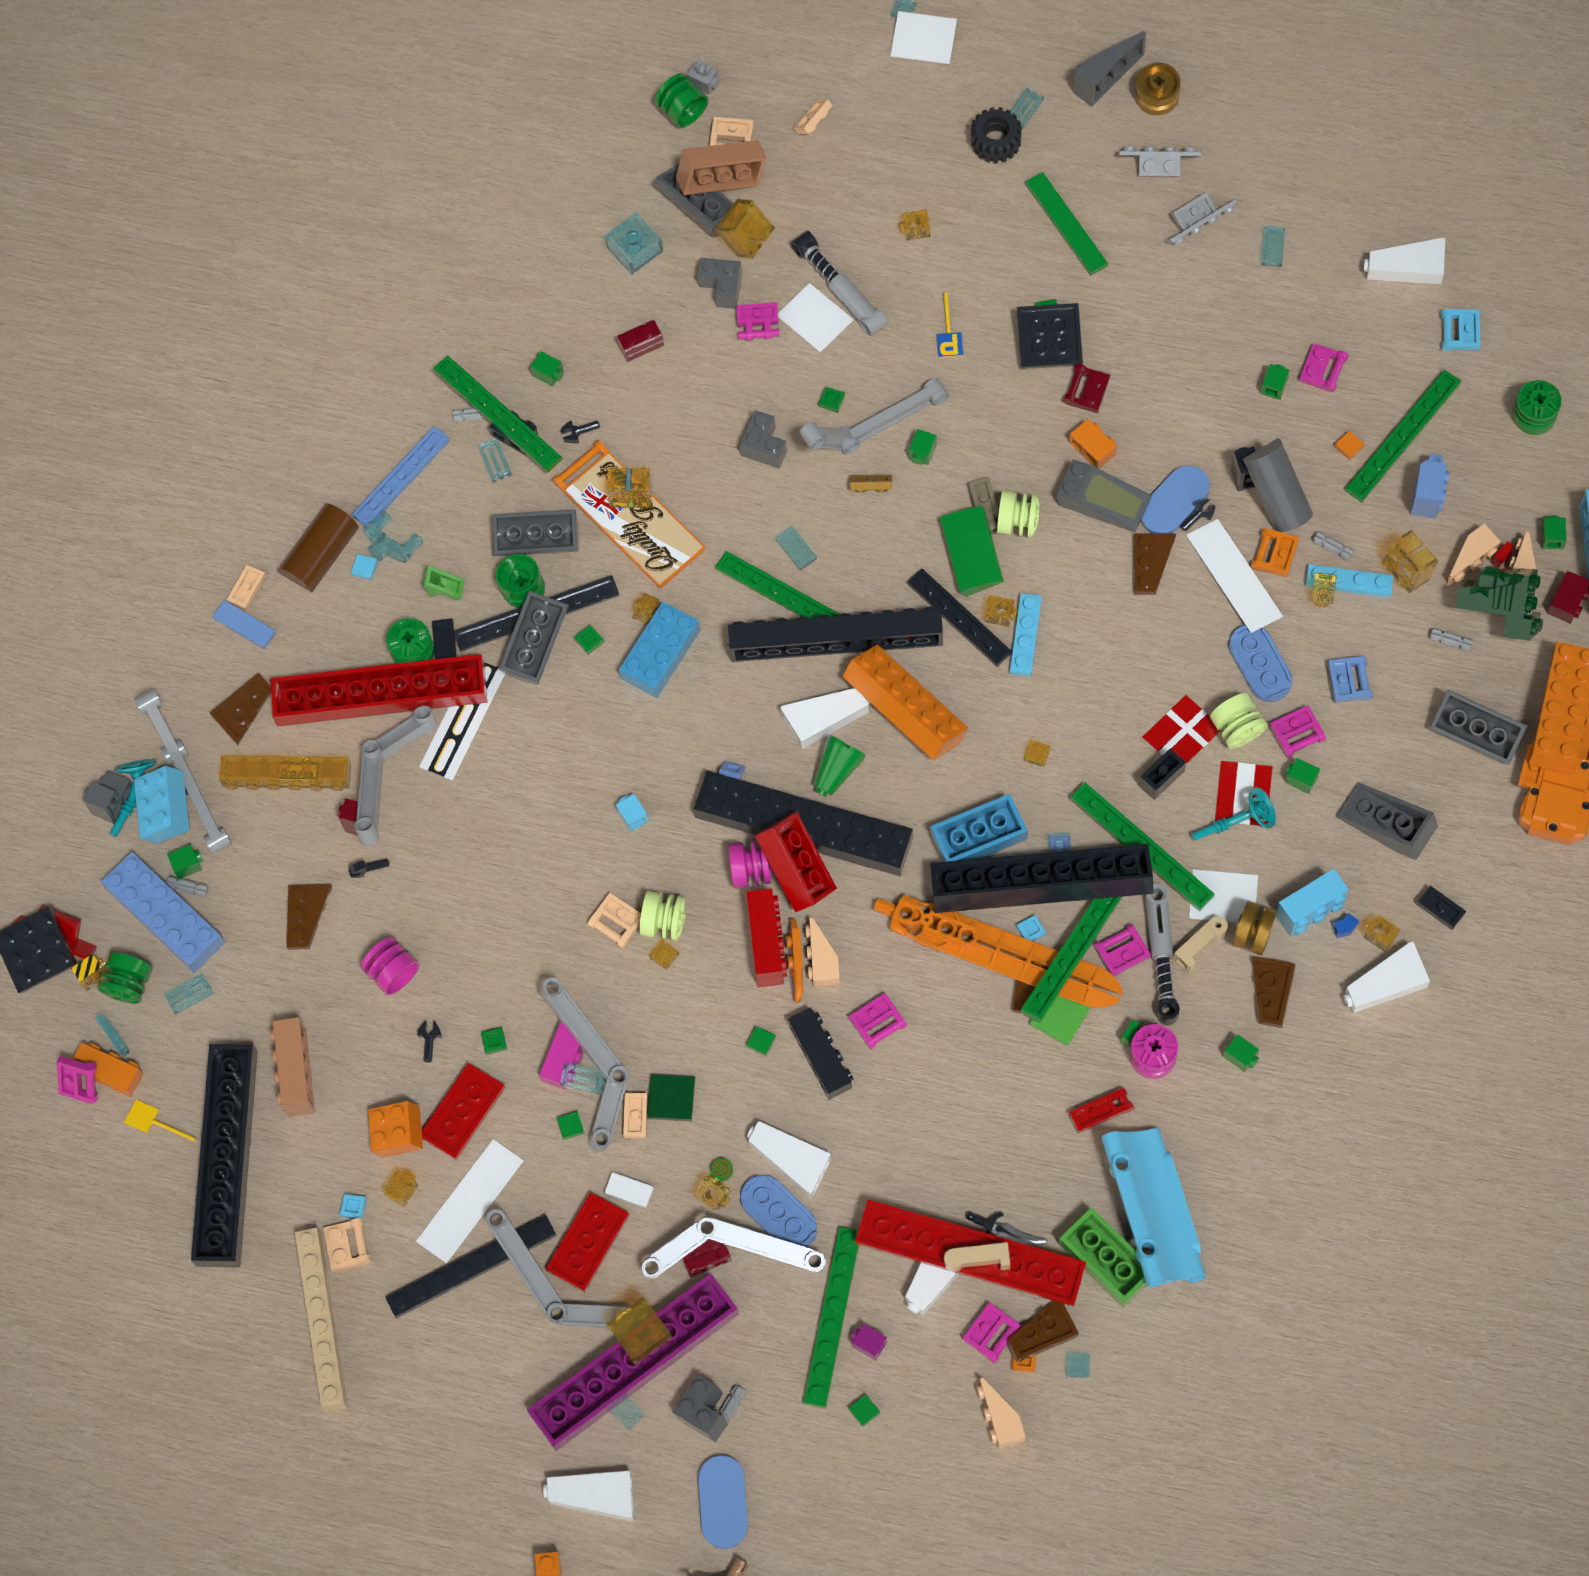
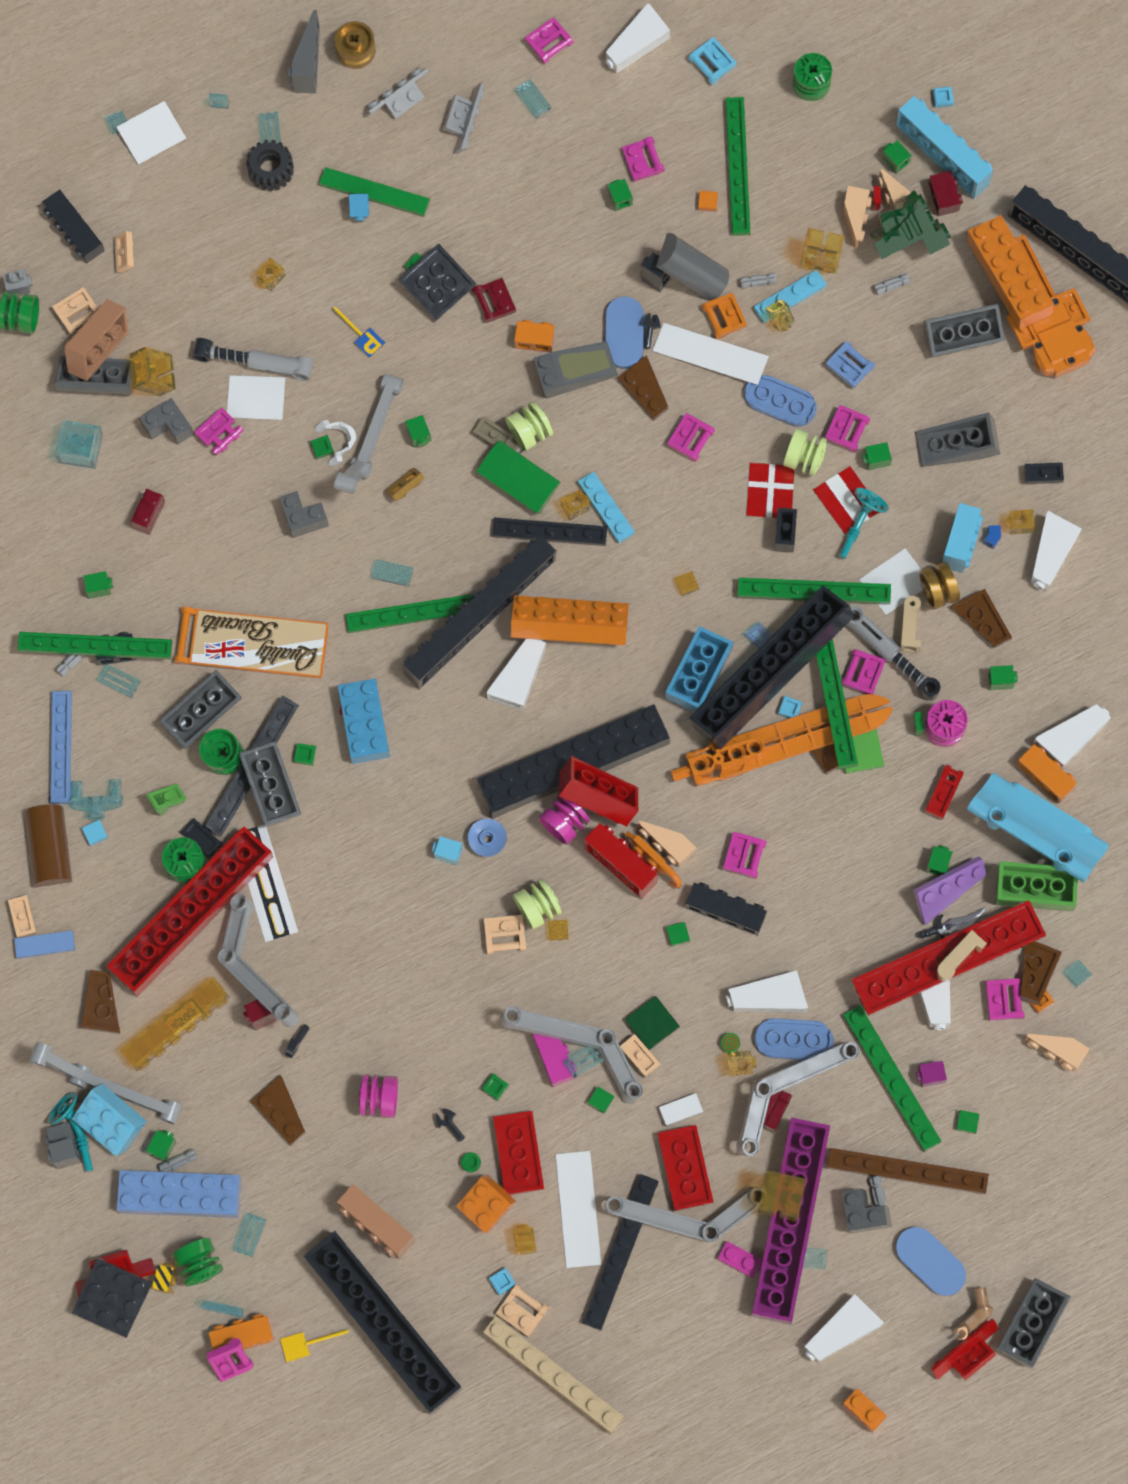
camera: 45 degrees left, 5 degrees up
(417, 1086) = (471, 1162): none -> green tile
(562, 1357) = (739, 1259): none -> dark pink plate
(576, 431) = (160, 611): black bar -> none
(629, 487) = (241, 622): clear yellow container -> none
(645, 608) = (328, 700): clear yellow brick -> none
(670, 819) = (486, 828): none -> medium blue dish
(732, 770) = (491, 764): medium blue plate -> none
(773, 1408) = (908, 1171): none -> reddish brown plate
(789, 66) = (73, 226): none -> black brick
(836, 765) = (560, 703): green cone -> none
(850, 383) = (351, 437): none -> white helmet
(1002, 52) = (219, 100): none -> clear light blue tile
(1026, 1194) = (945, 889): none -> medium lavender wing
(1040, 224) = (359, 206): none -> dark azure brick
(1042, 1165) = (939, 860): none -> green brick
(1151, 625) = (686, 432): none -> dark pink plate
(1207, 1169) = (1047, 773): none -> orange brick
(1260, 1155) = (1073, 735): none -> white slope
(1331, 201) = (546, 35): none -> dark pink plate
(1430, 487) = (790, 188): medium blue hinge -> none

